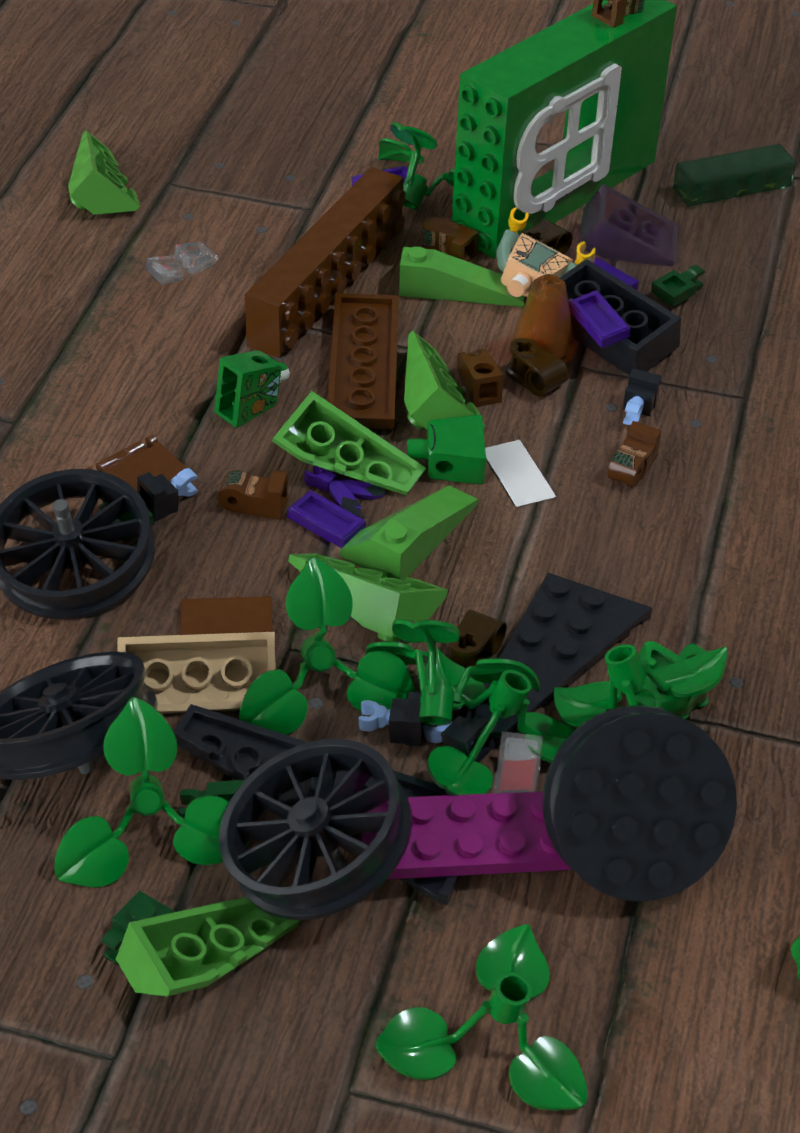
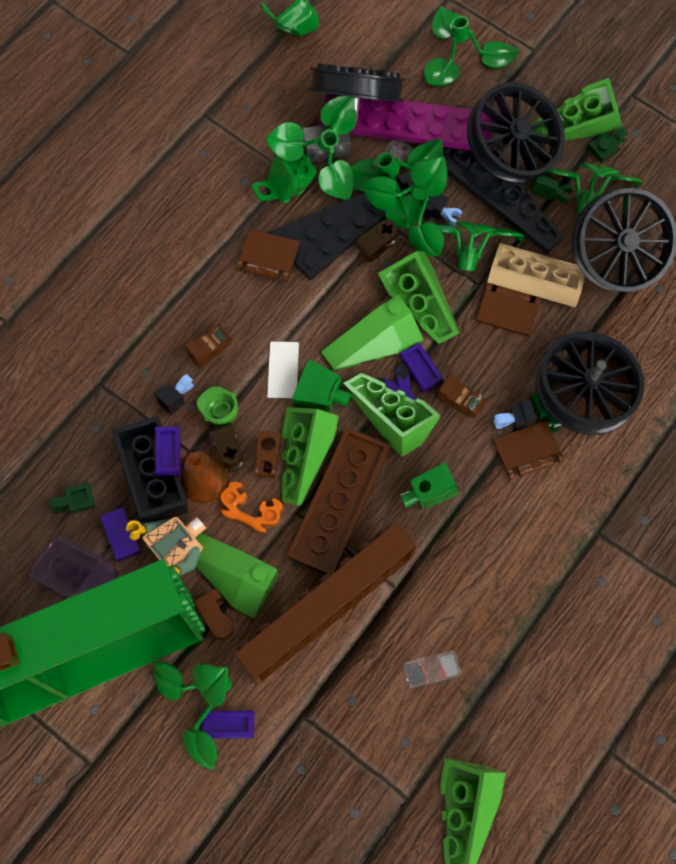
camera: 155 degrees left, 25 degrees up
(493, 332) = (270, 515): none -> orange helmet
(572, 397) = (218, 406): none -> bright green hat
(626, 577) = (268, 255): none -> reddish brown piece

